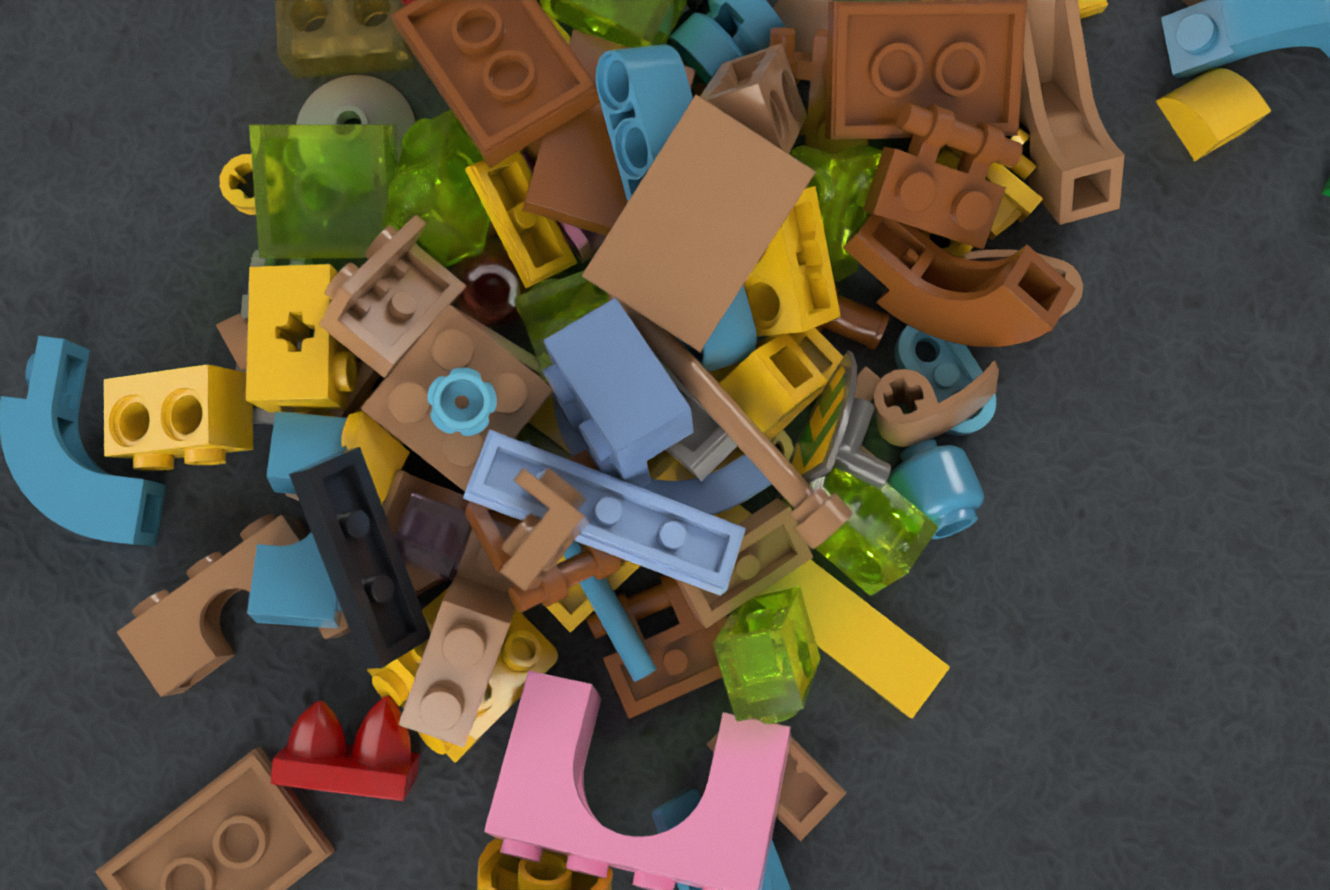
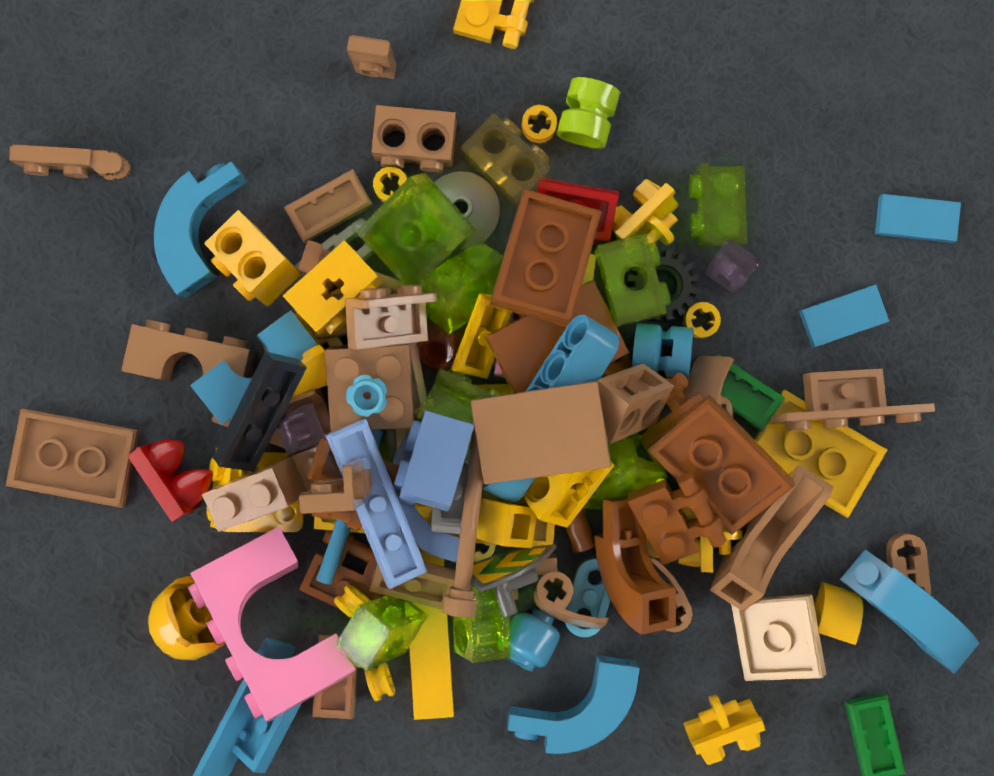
camera: 50 degrees right, 5 degrees up
(75, 62) = (371, 56): none -> medium nougat plate
(205, 275) = (328, 206): none -> medium nougat plate
(209, 92) = (416, 126): none -> medium nougat brick
(698, 662) = (350, 600): none -> yellow bush
(828, 719) = (380, 681): none -> yellow bush
(1096, 494) = (591, 719): none -> dark azure arch
(1187, 196) = (779, 639): none -> tan tile
(1236, 351) = (722, 726): none -> yellow hips

